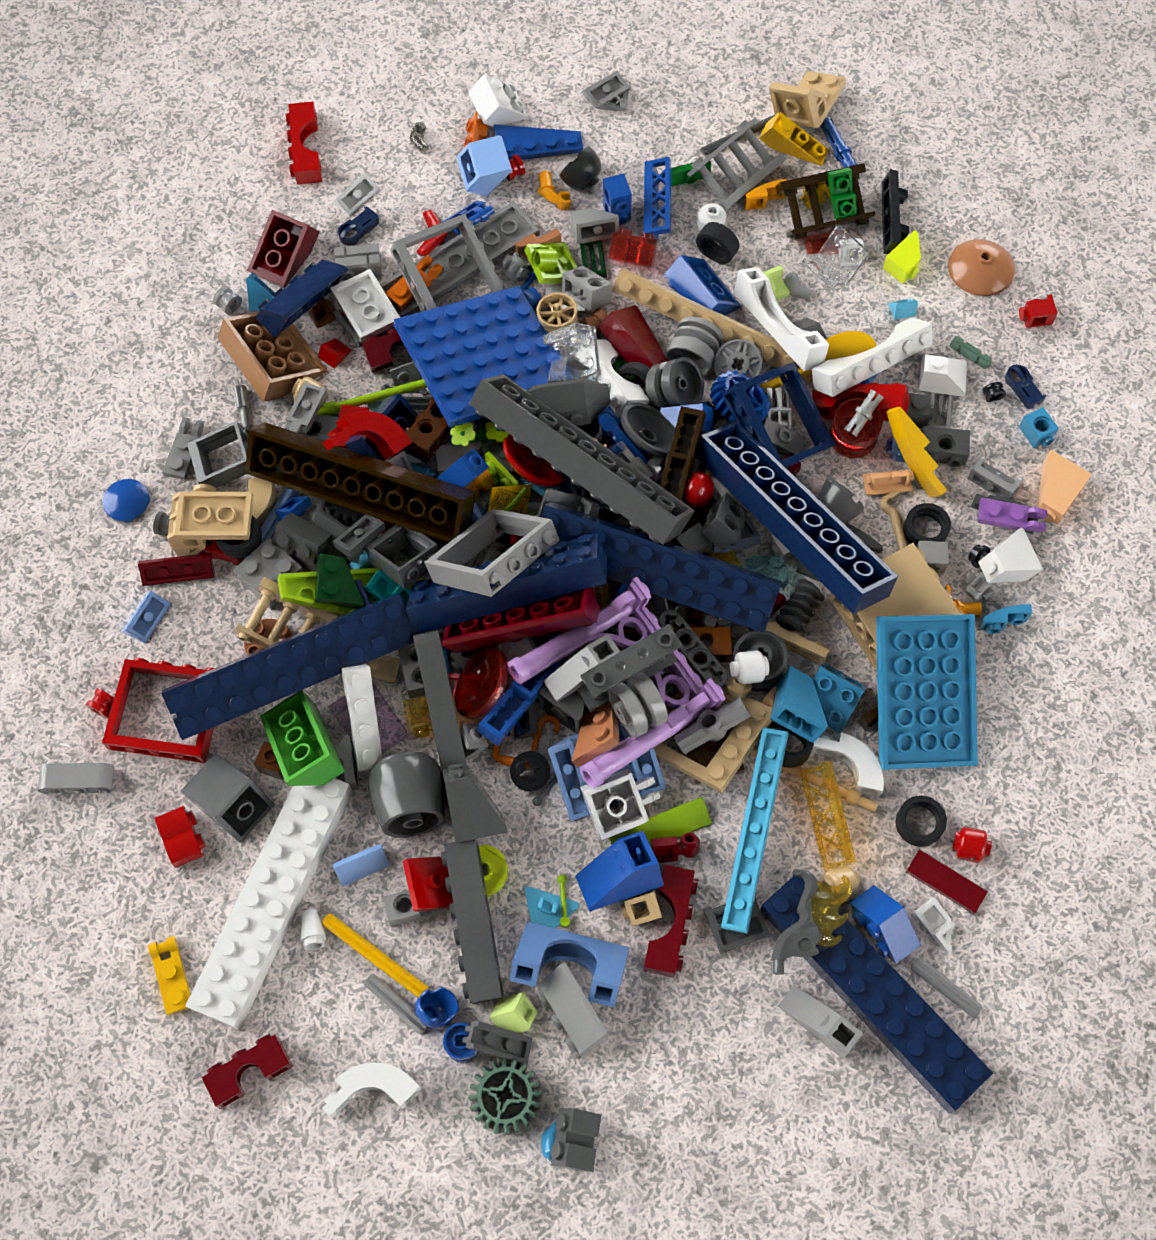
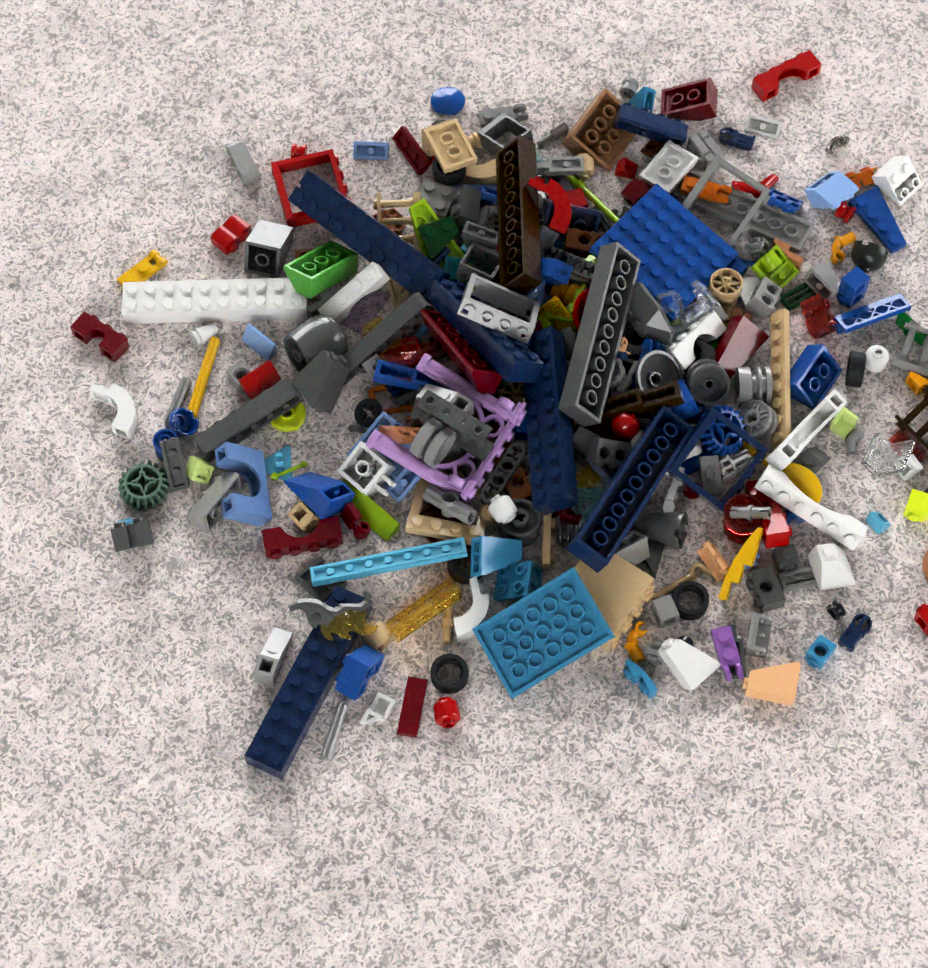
camera: 65 degrees right, 5 degrees down
(450, 453) = (572, 260): none -> dark grey beam
(970, 352) = (865, 583): sand green axle -> none

